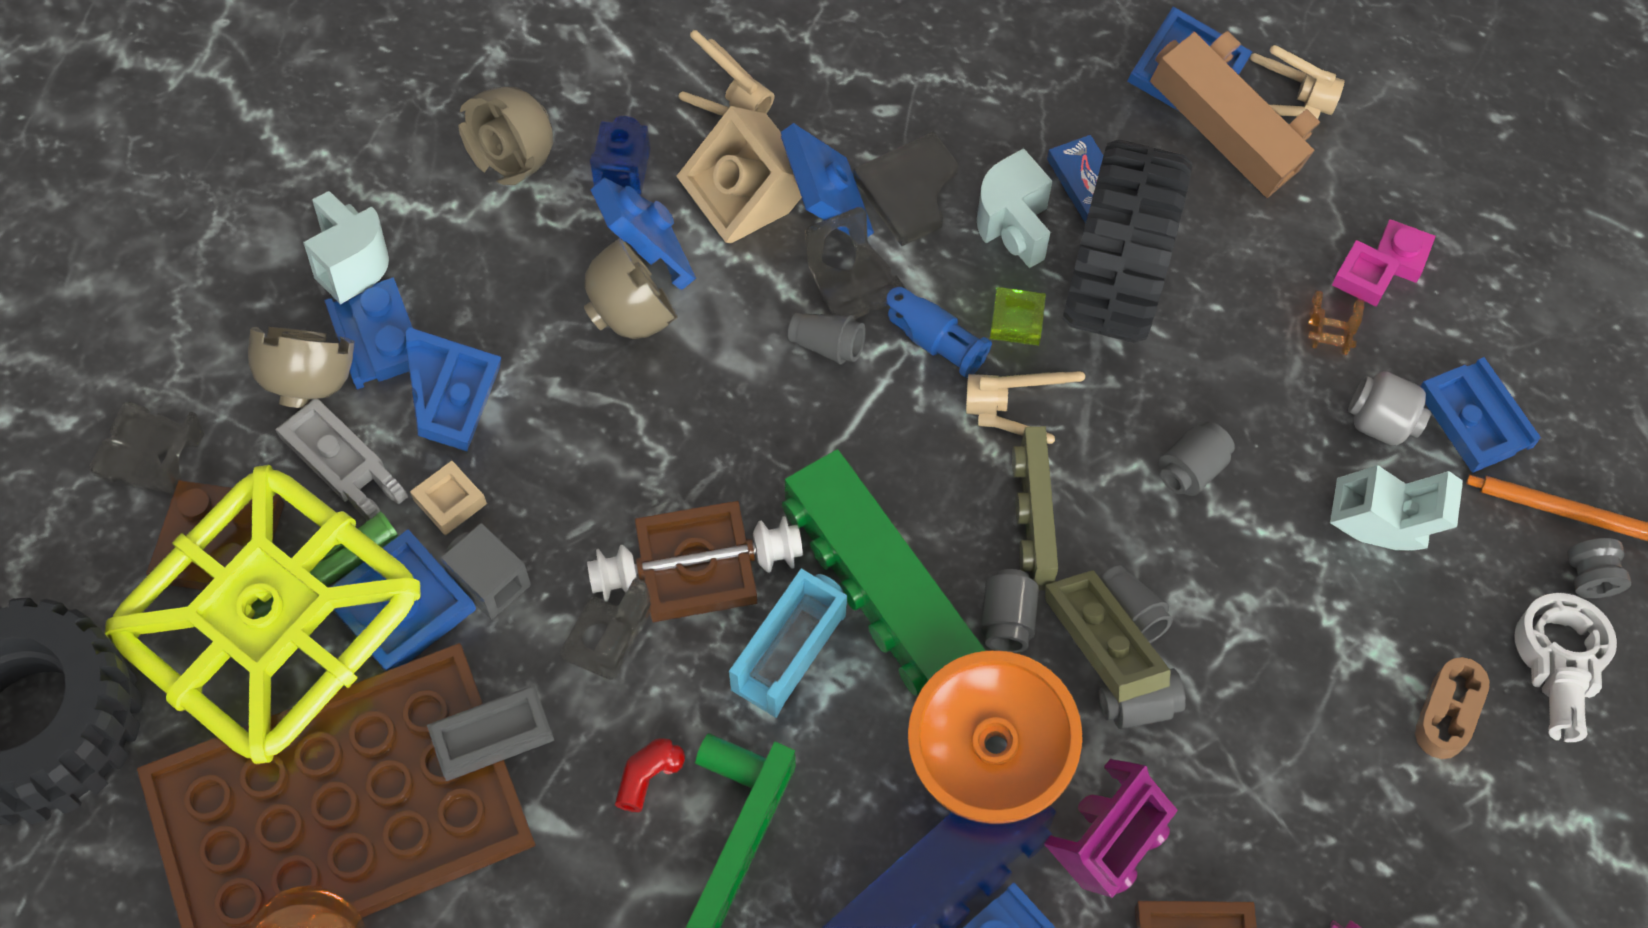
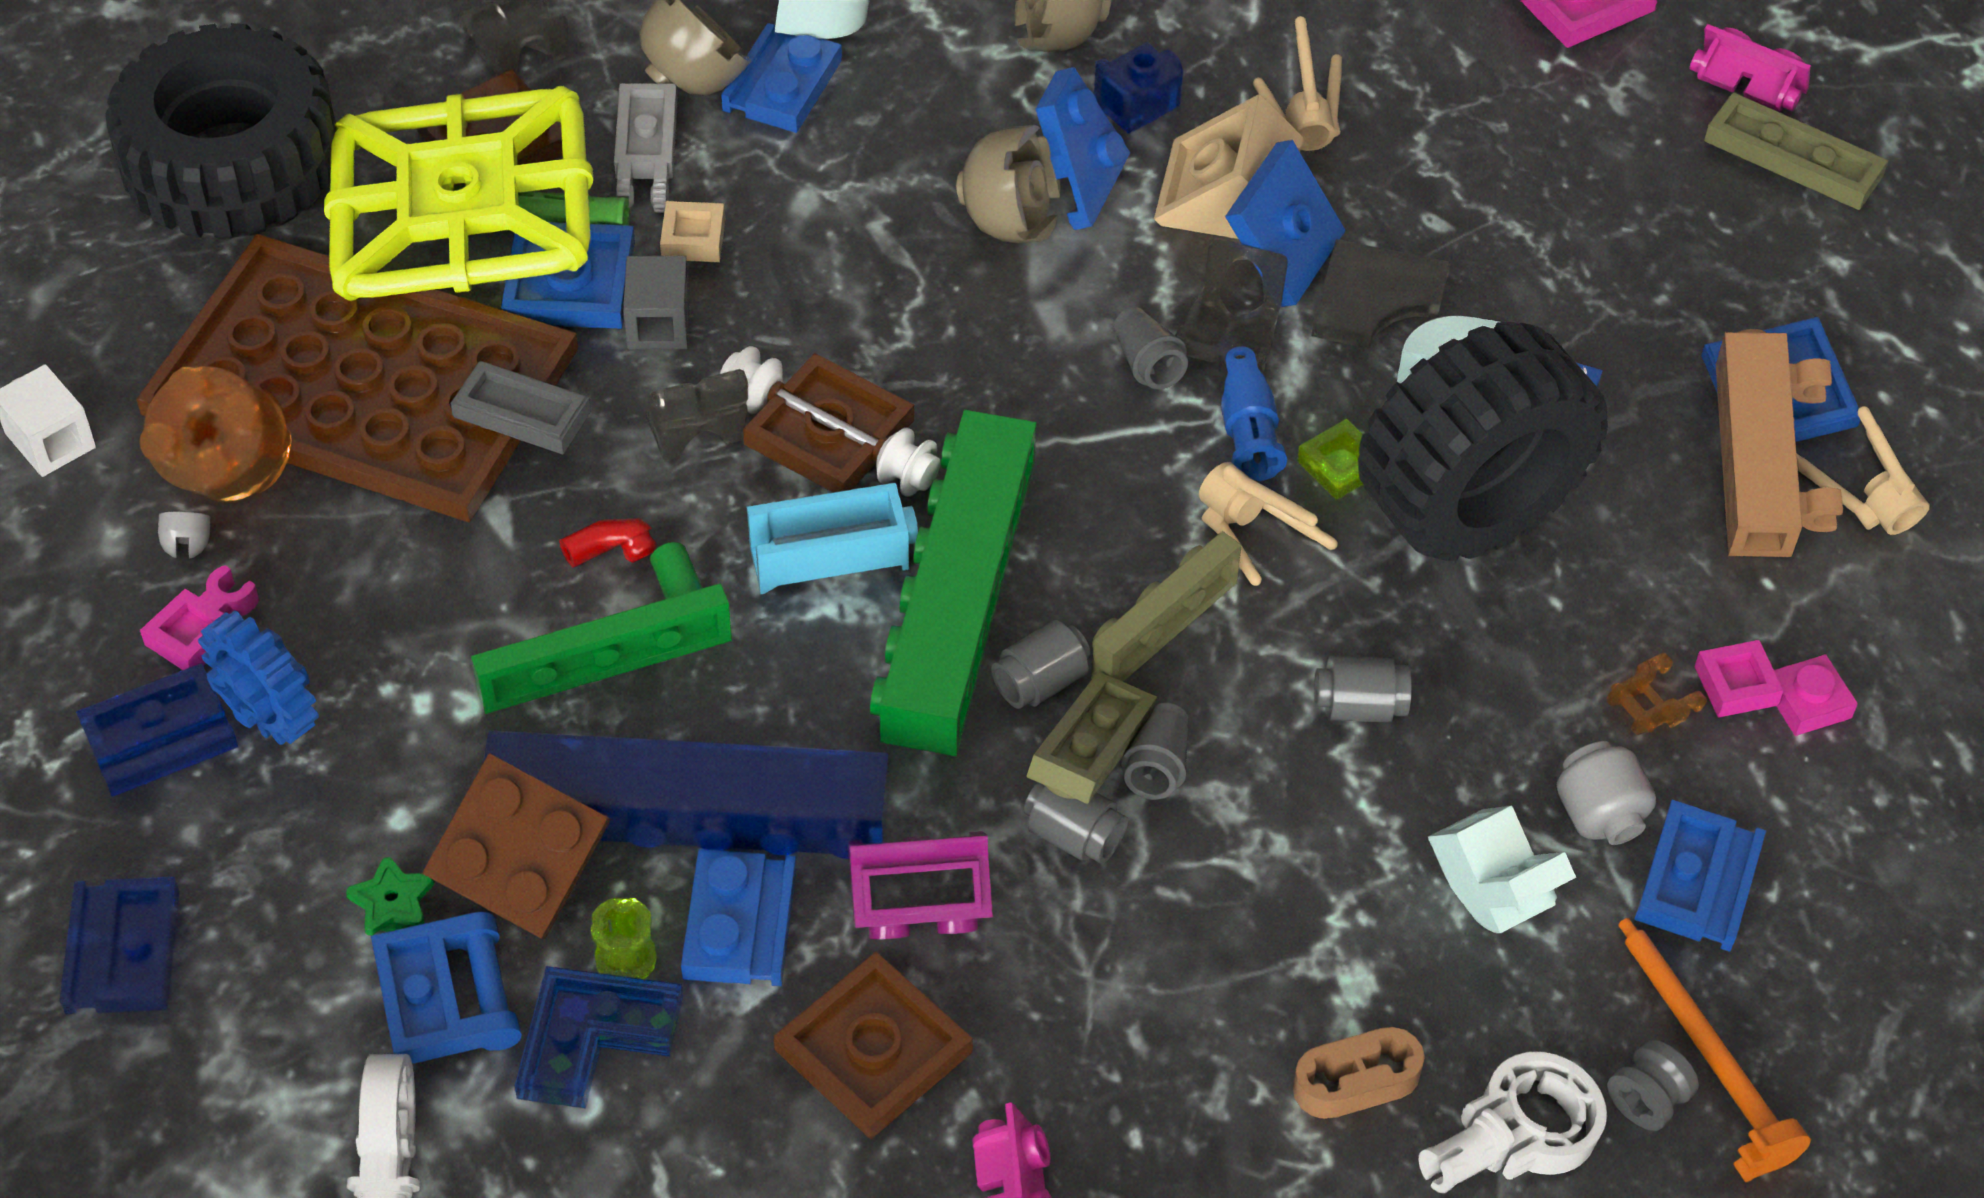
camera: 45 degrees right, 10 degrees down
(448, 387) = (787, 153): blue wing -> none
(987, 698) = (881, 682): orange dish -> none

